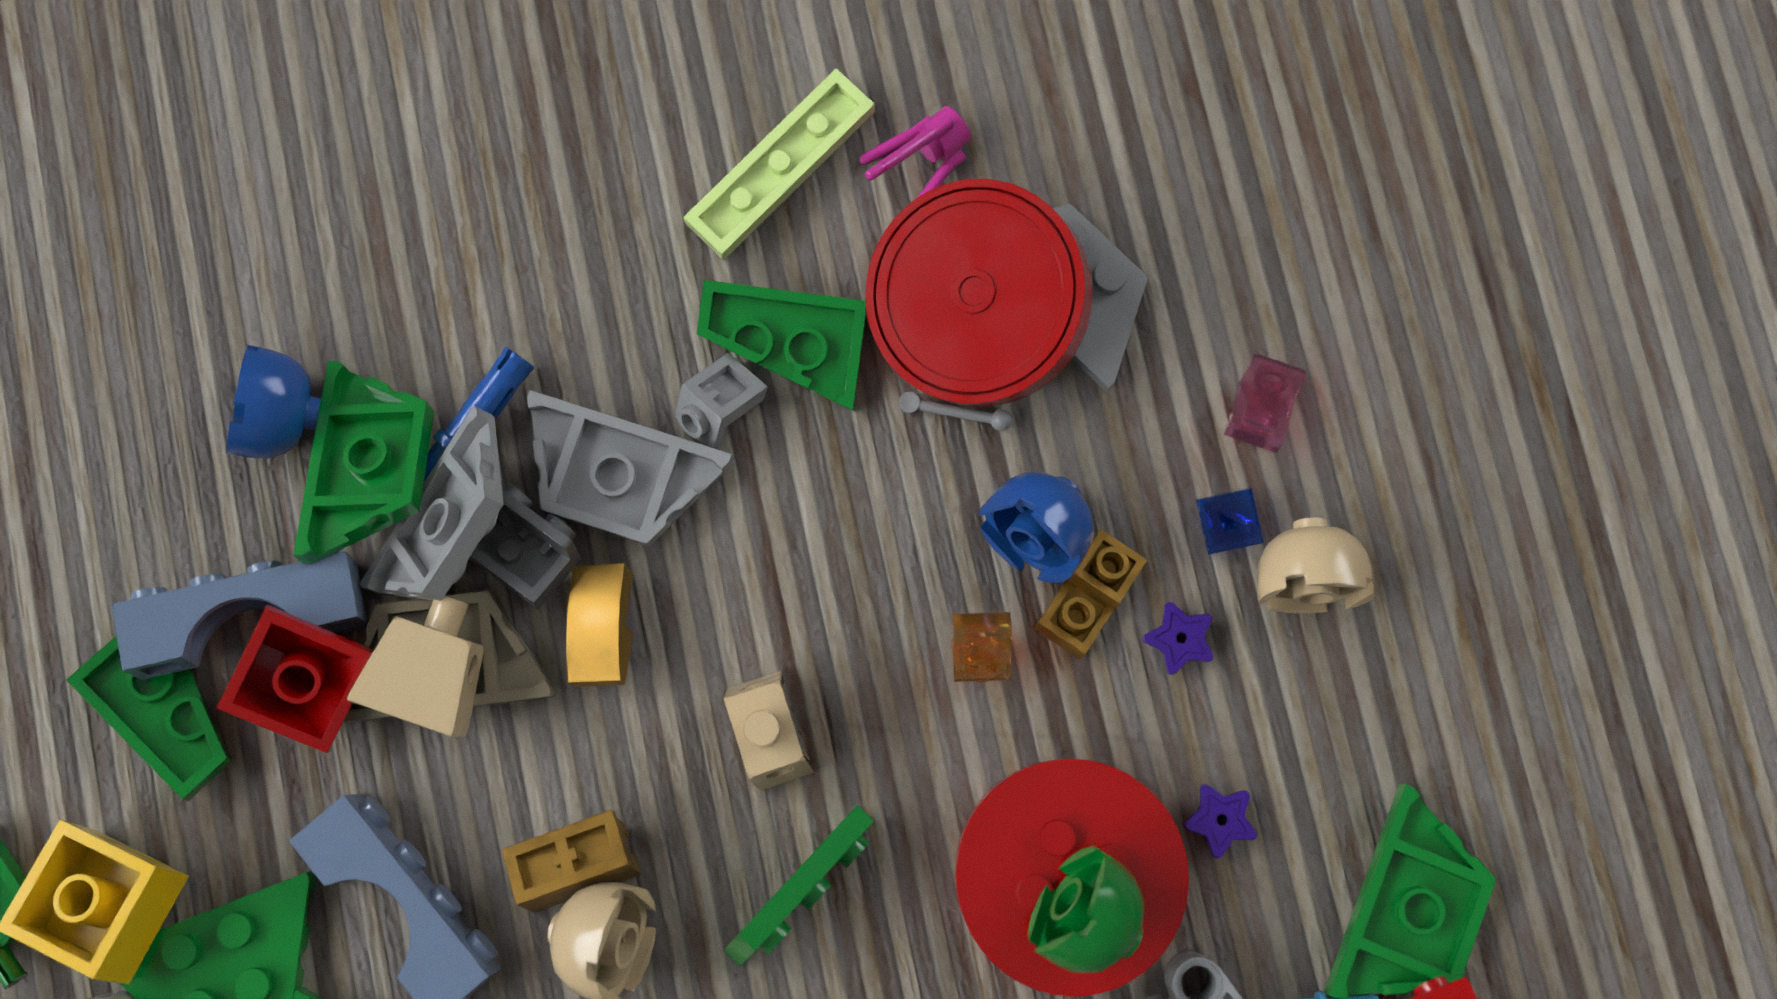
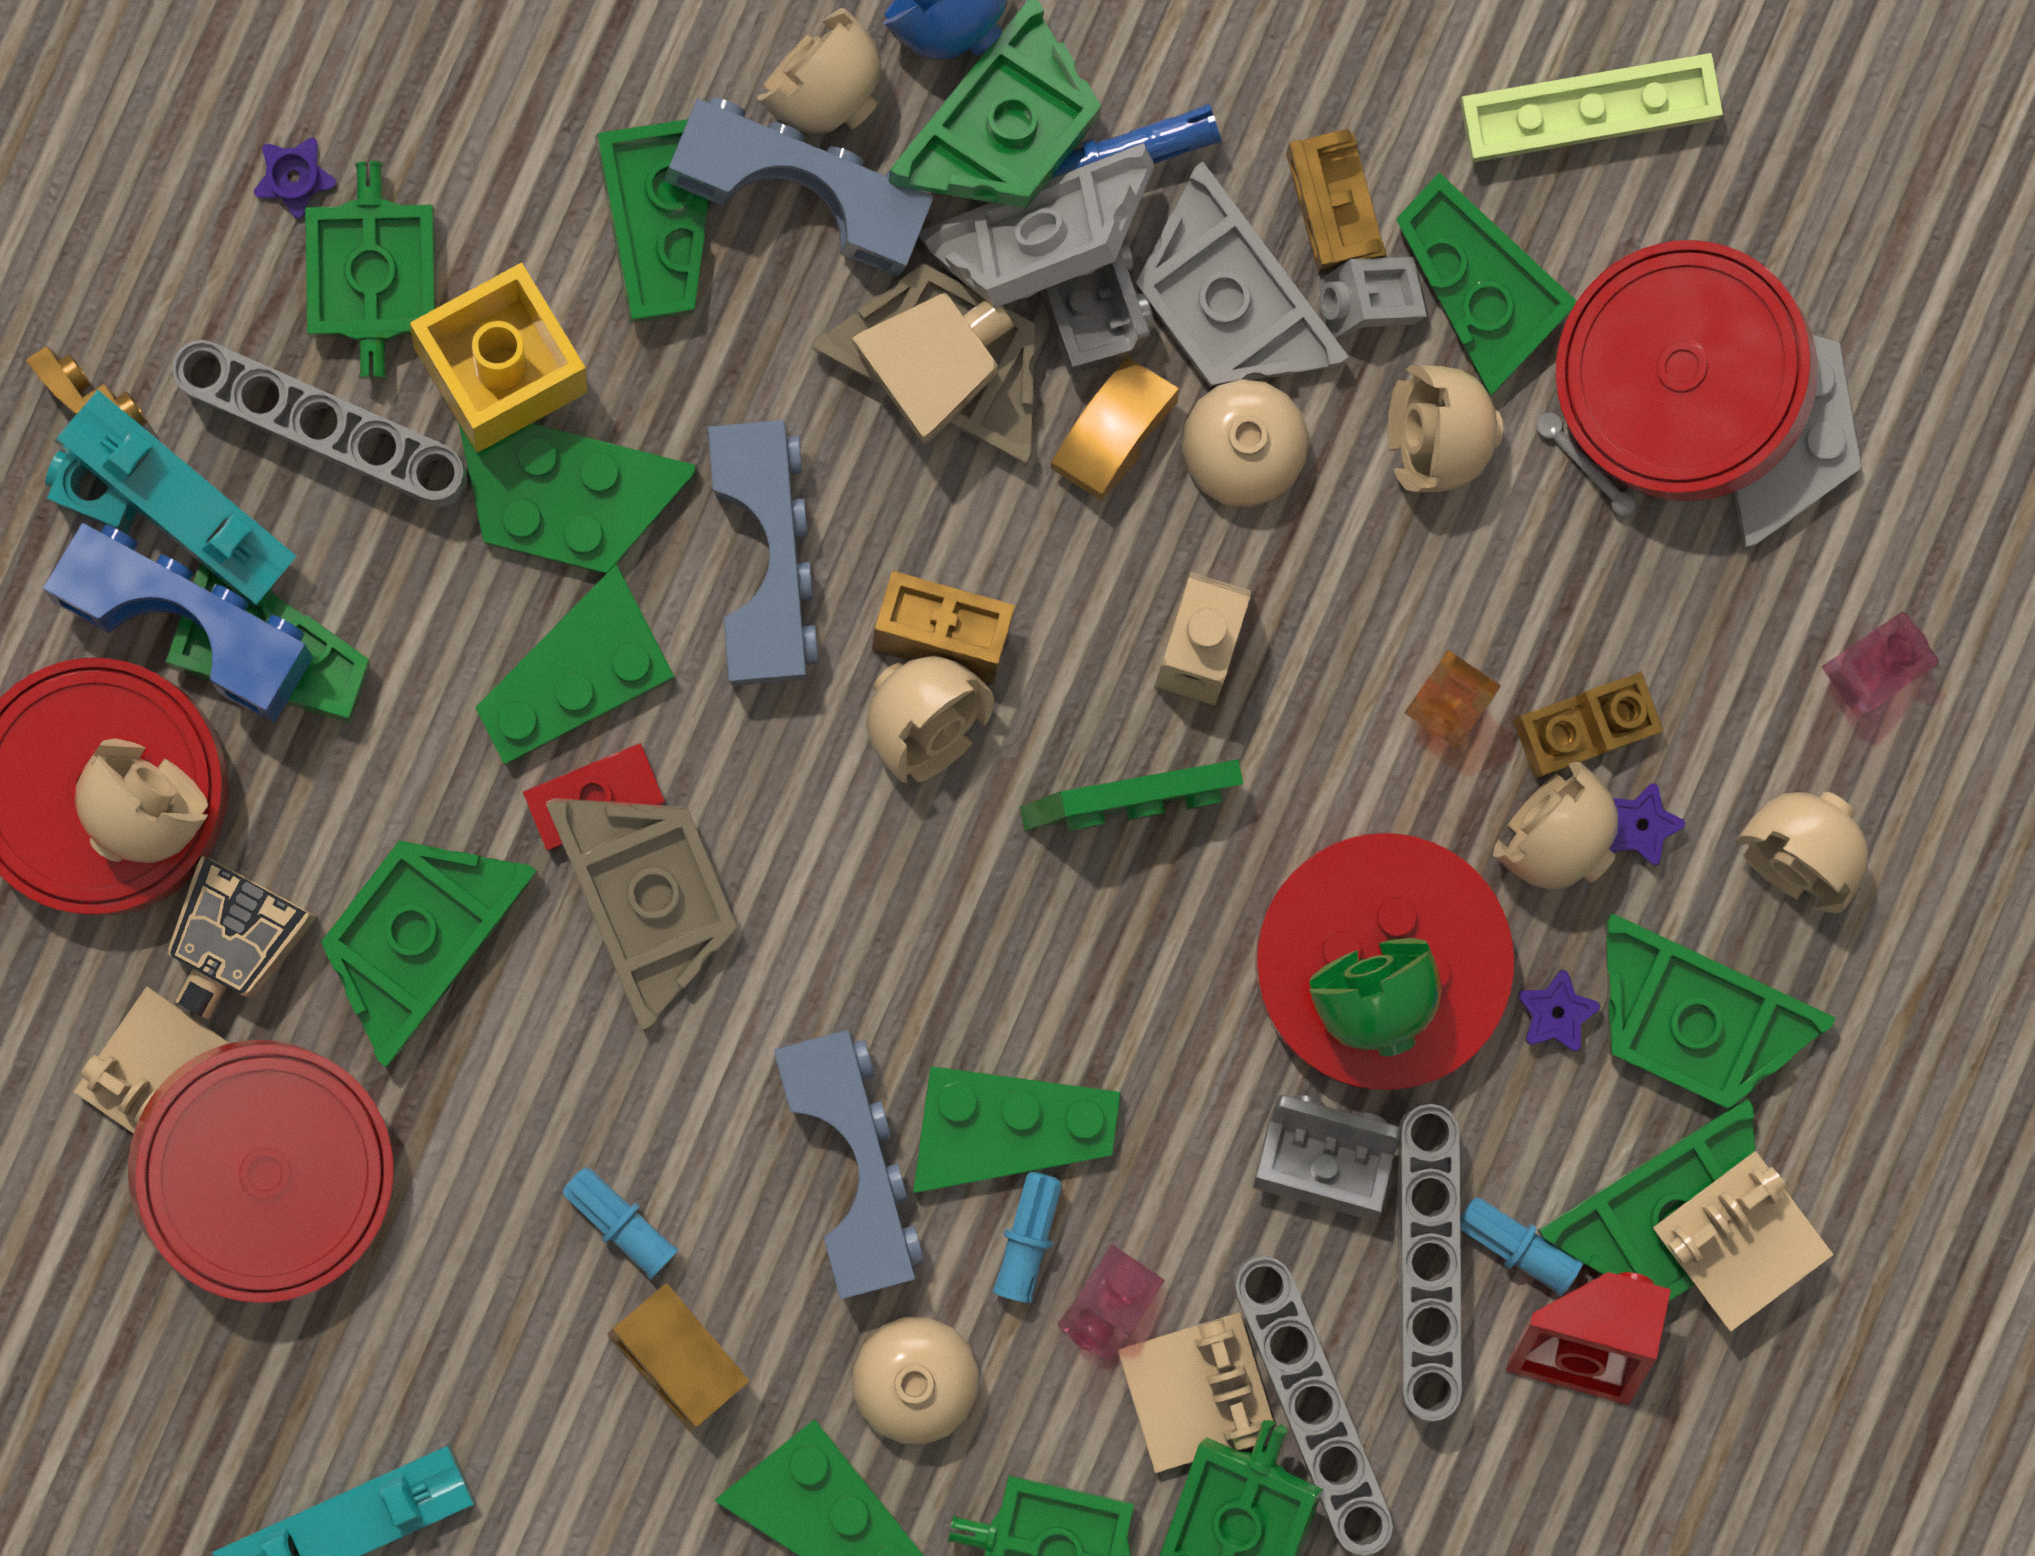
camera: 30 degrees right, 5 degrees up
(211, 521) = (826, 79): none -> tan cylinder
(295, 679) = (812, 282): red slope -> none
(642, 350) = (1334, 199): none -> pearl gold hinge
(701, 568) = (1245, 443): none -> tan cylinder
(836, 456) = (1443, 428): none -> tan cylinder
(934, 136) = (1758, 188): dark pink plant -> none
(1040, 523) = (1588, 625): blue cylinder -> none
(1130, 686) = (1562, 832): none -> tan cylinder
(1229, 520) = (1767, 749): clear blue tile -> none
(1324, 750) = (1698, 1017): none -> green wing
(1484, 895) = (1743, 1240): none -> tan hinge

